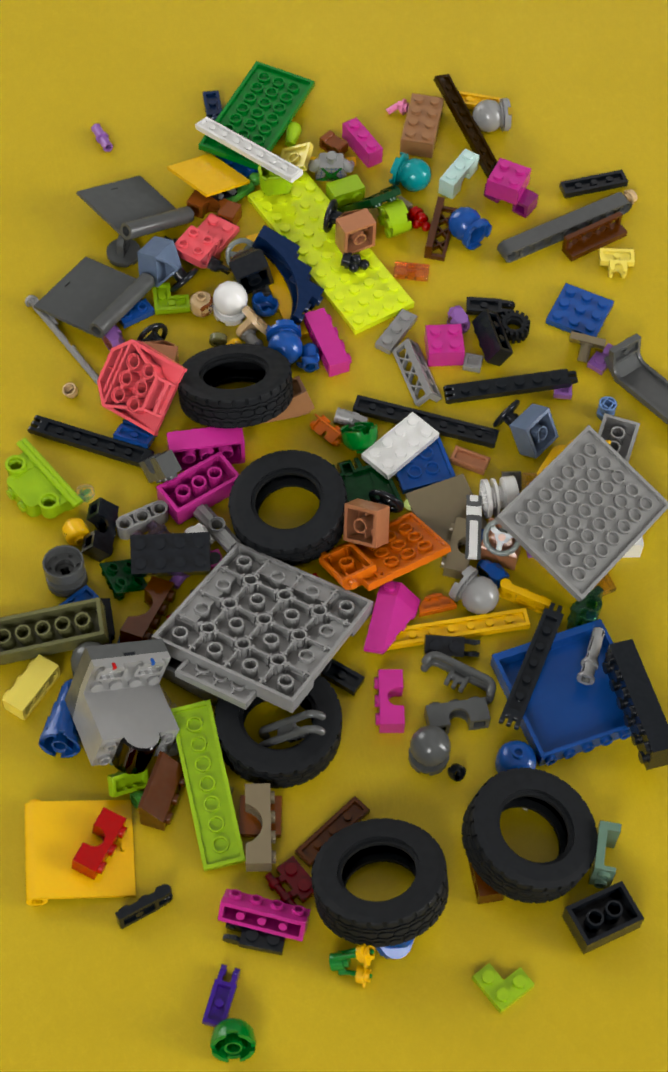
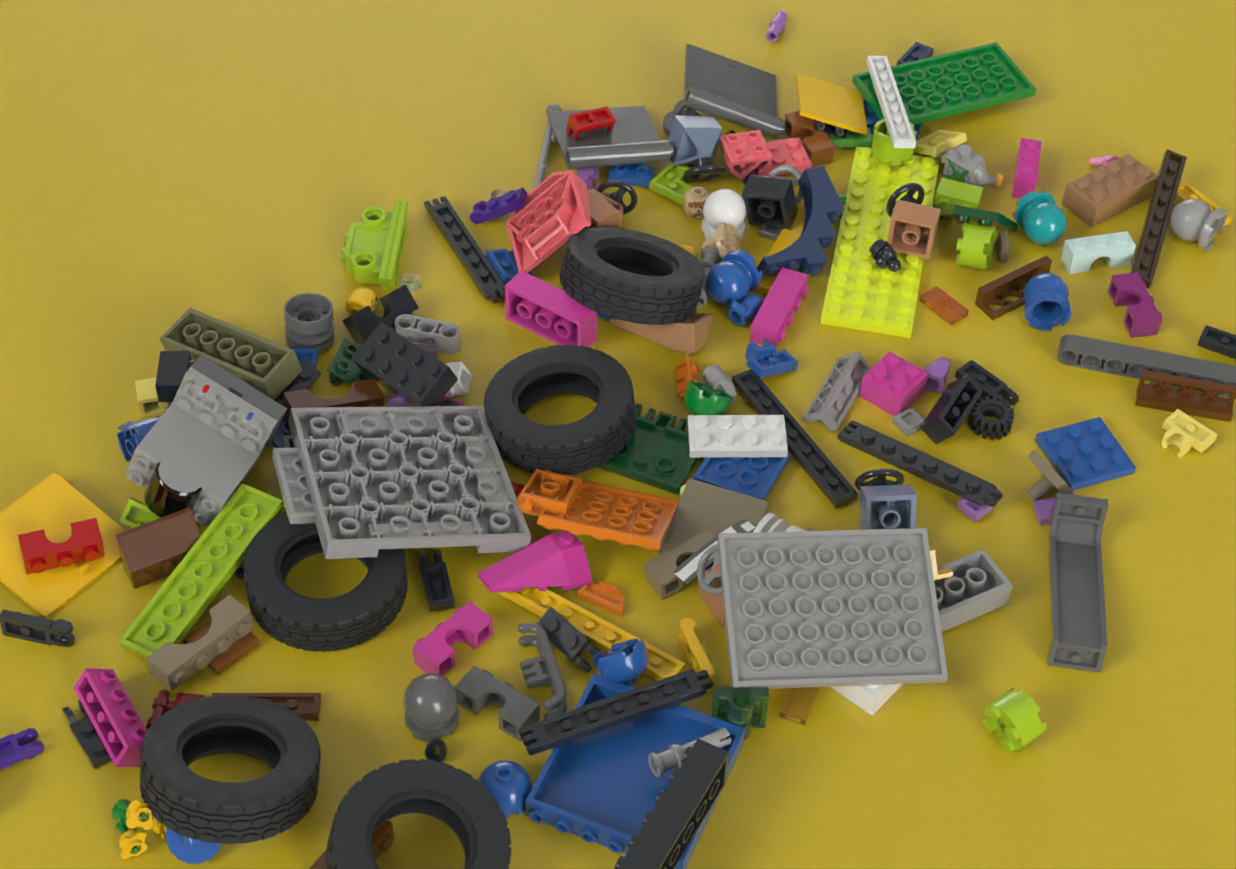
camera: 45 degrees right, 10 degrees down
(32, 675) = (171, 372): none -> black brick
(80, 294) = (590, 120): none -> red hinge
(84, 397) = (498, 206): none -> dark purple hinge
(161, 467) = (485, 295): dark grey arch -> none
(201, 484) = (499, 338): dark pink brick -> none
(211, 521) = (480, 379): light grey piece -> none
(217, 339) = (678, 238): olive tile -> none
(264, 305) = (756, 240): blue hair -> none
(288, 729) = (316, 579): dark grey piece -> none
(292, 134) = (966, 122): lime cone -> none
(331, 142) = (996, 155): dark orange piece -> none
(360, 382) = (766, 361): none -> blue plate
(368, 521) = (614, 471): nougat piece -> none
(396, 331) = (867, 344): light grey plate -> none
(418, 219) = (1006, 262): red piece -> none
(469, 460) = (798, 501): nougat tile -> none
(476, 592) = (647, 606): light grey tile -> none
(492, 571) = (692, 607): blue rock -> none
(499, 633) = (622, 662): none -> blue cylinder
(508, 181) = (1135, 282): dark pink brick -> none
(606, 405) = (1002, 552): medium blue wheel -> none

